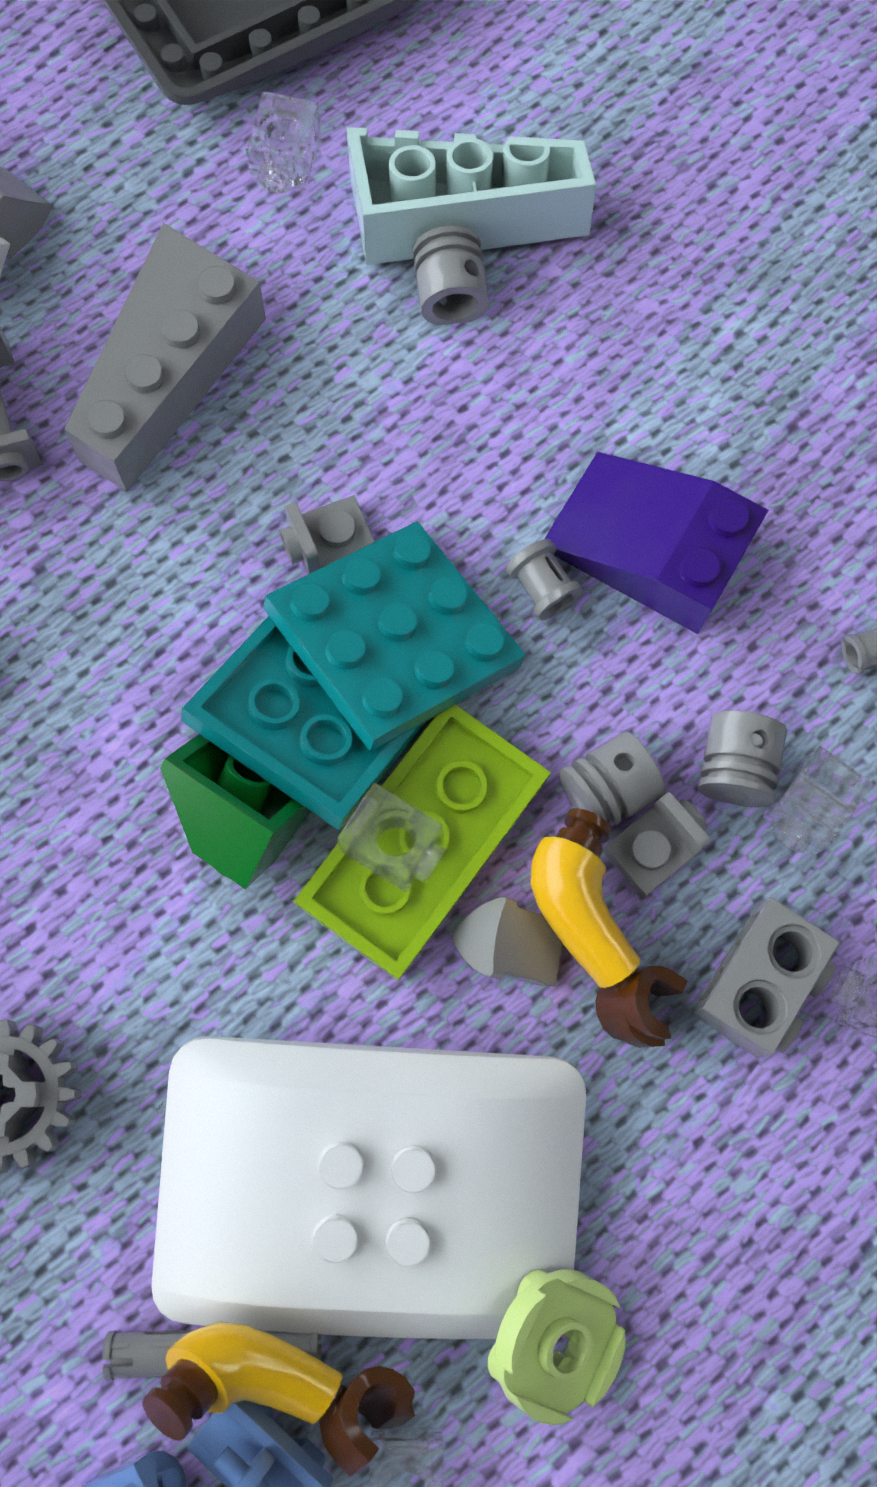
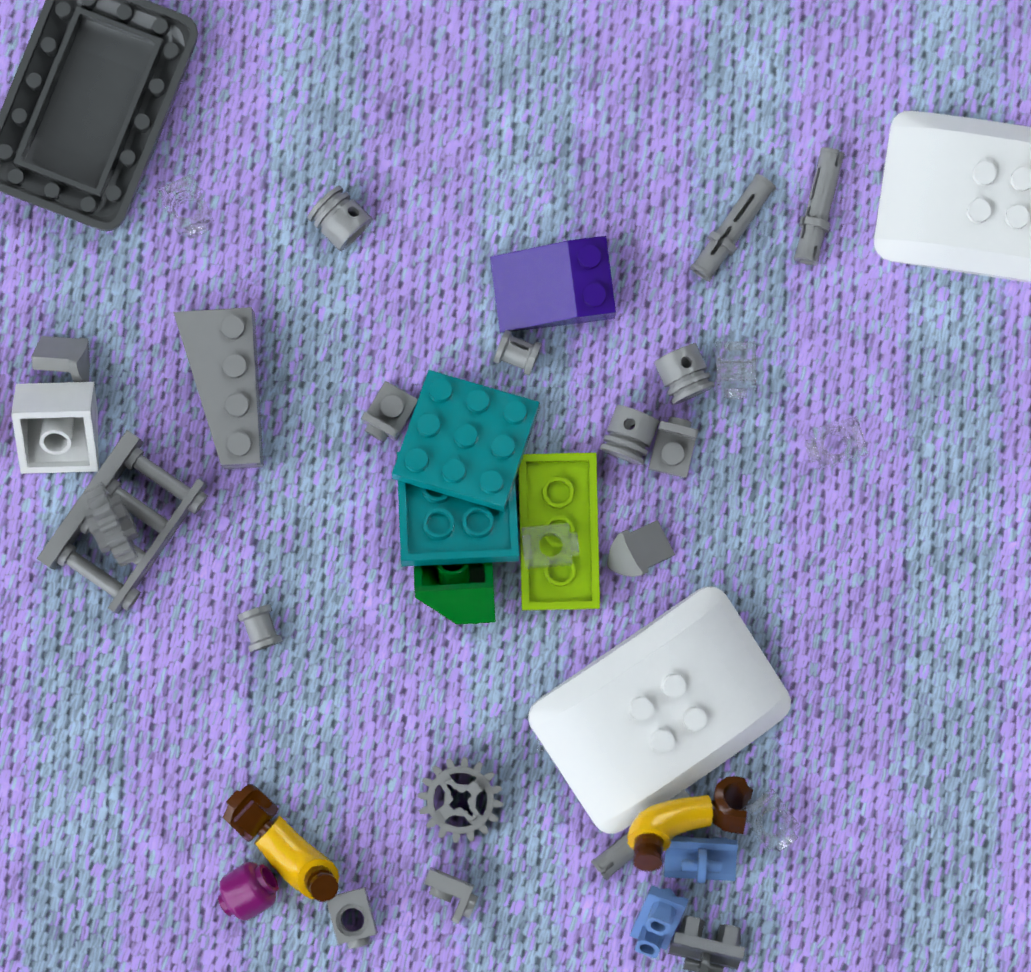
camera: 35 degrees left, 10 degrees up
(502, 192) = (308, 165): light aqua wedge -> none
(523, 1355) = (776, 716): yellowish green plate -> none
(570, 896) = (652, 509): piece -> none
(753, 969) = (761, 475): light grey brick -> none

